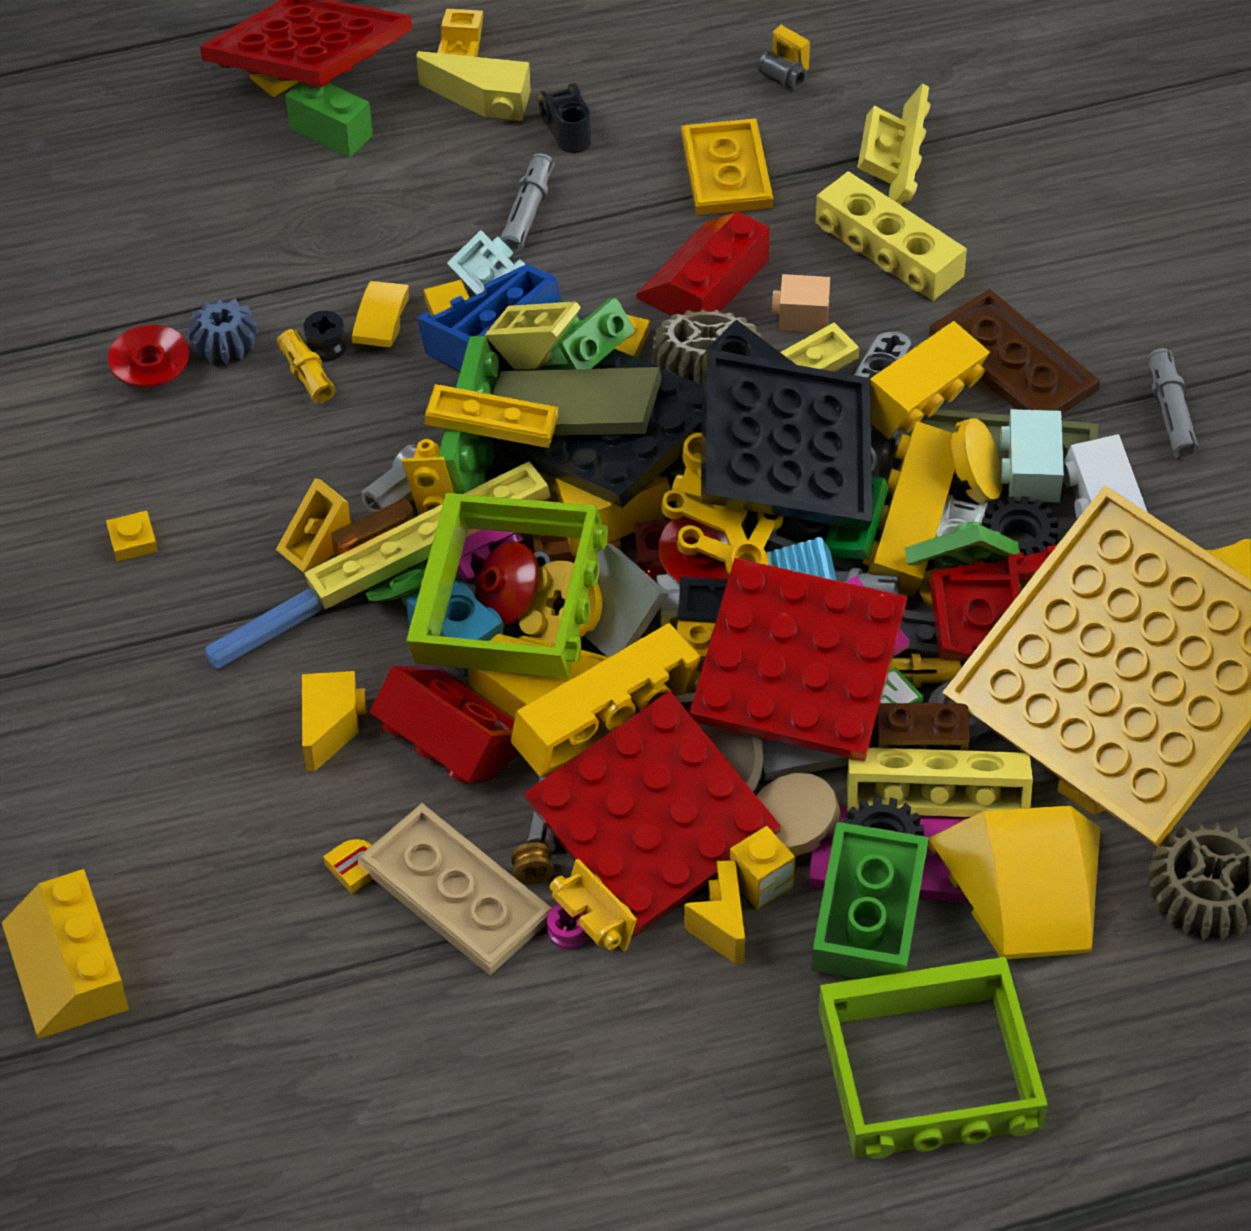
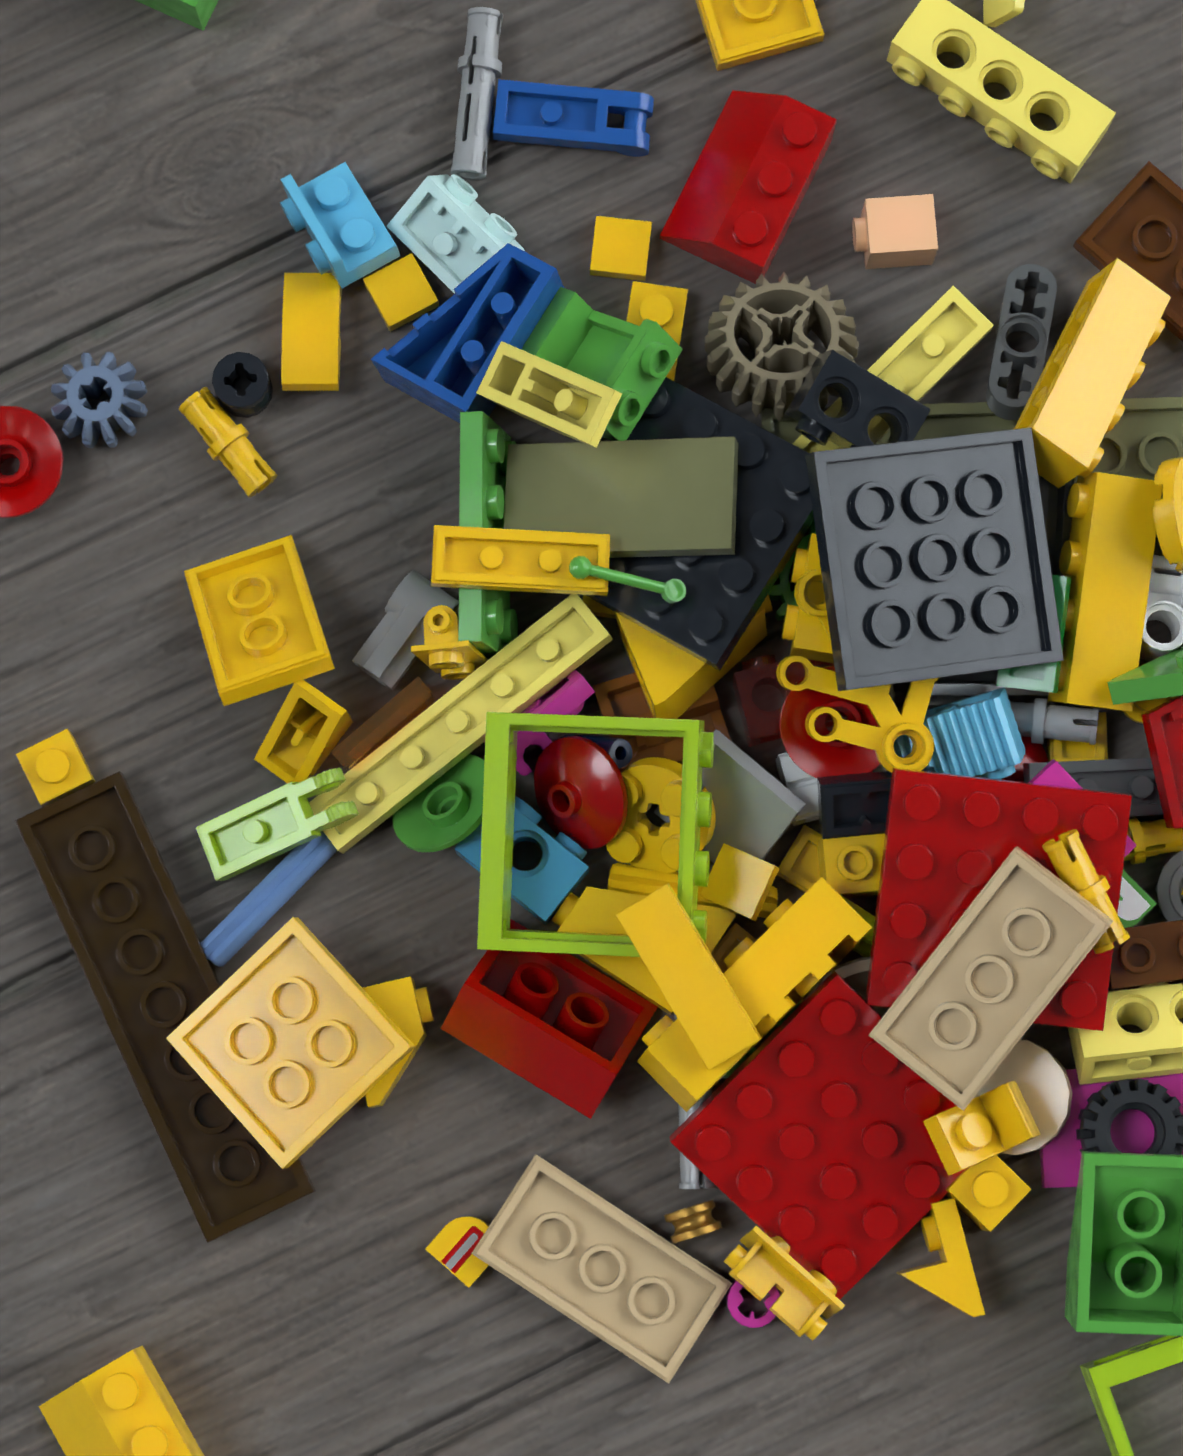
camera: 10 degrees left, 30 degrees up
(171, 685) = (147, 981): none -> dark brown plate
(255, 693) = (290, 1042): none -> yellow plate
(281, 574) = (271, 825): none -> lime hinge
(299, 453) = (258, 620): none -> yellow tile
(413, 256) = (341, 224): none -> medium azure bracket
(557, 661) = (688, 976): none -> yellow tile
(590, 221) = (572, 117): none -> blue plate
(596, 447) = (671, 591): none -> bright green hinge
(602, 289) = (620, 248): none -> yellow tile
(609, 640) = (739, 881): none -> yellow tile
(764, 805) = (983, 1129): none -> yellow slope
(780, 687) = (990, 977): none -> tan tile
(862, 643) = (1079, 873): none -> yellow pin

